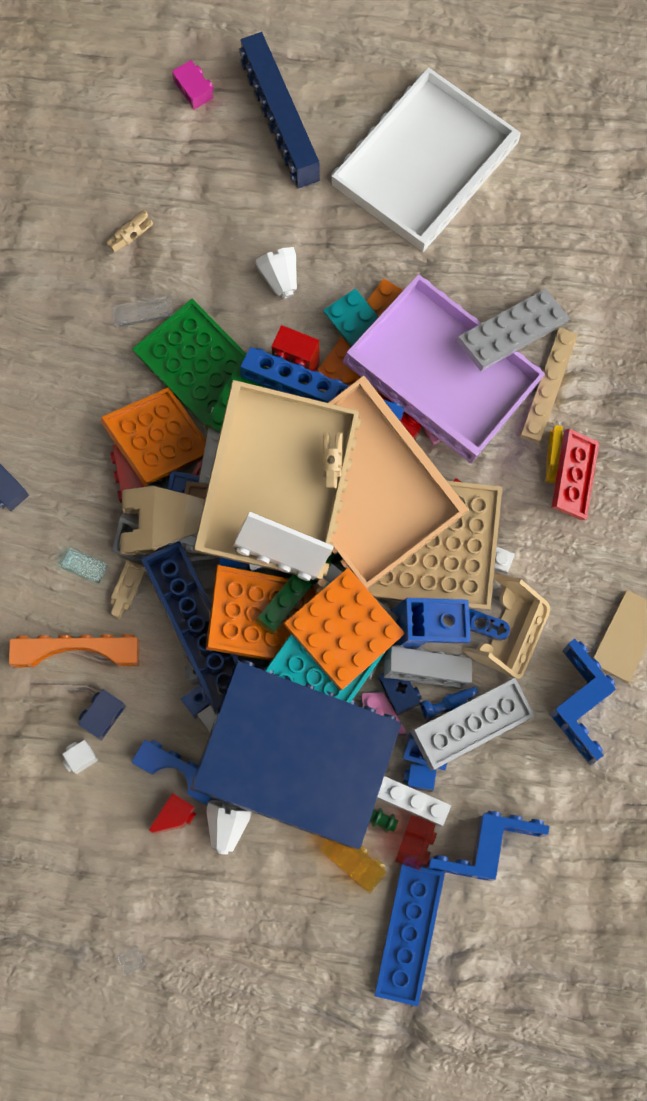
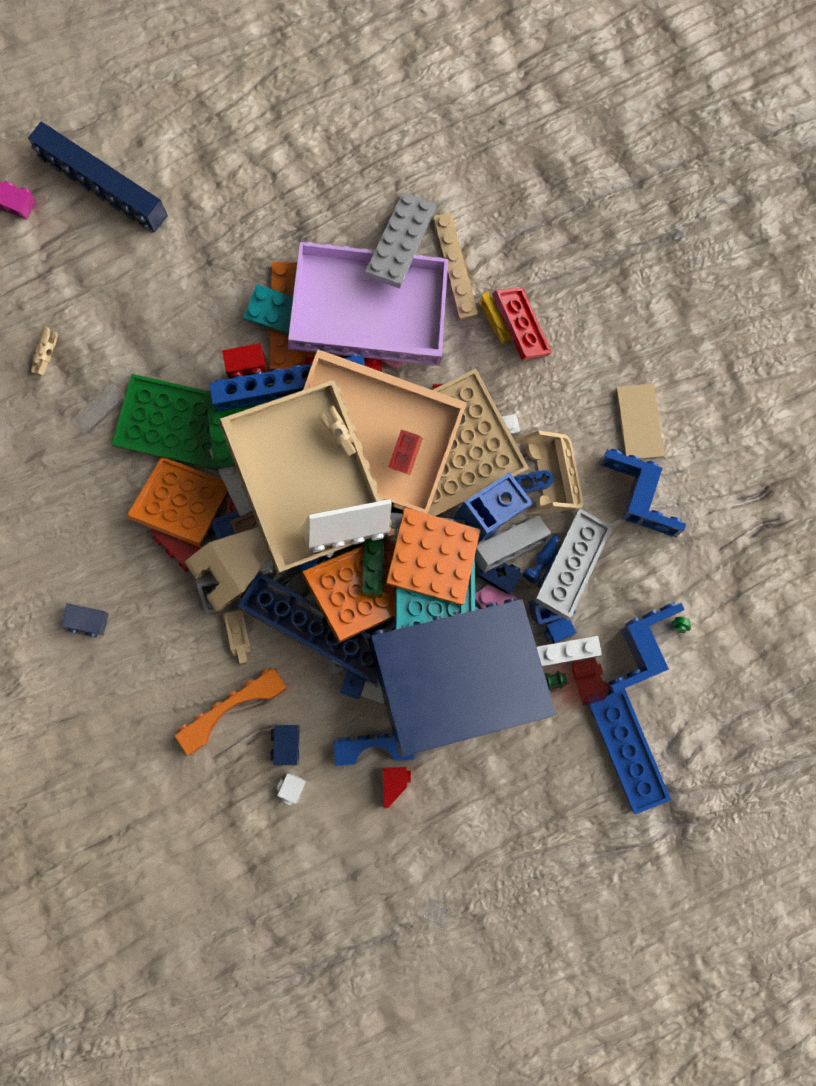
camera: 35 degrees left, 5 degrees up
(84, 565) = (191, 639): clear light blue tile -> none
(226, 825) = (440, 765): white cone -> none
(279, 271) = (187, 308): white cone -> none
(355, 864) = (556, 727): clear yellow brick -> none
(382, 518) = (405, 452): none -> red hinge
(425, 159) = (240, 146): white panel -> none
(539, 850) = (681, 624): none -> green plate

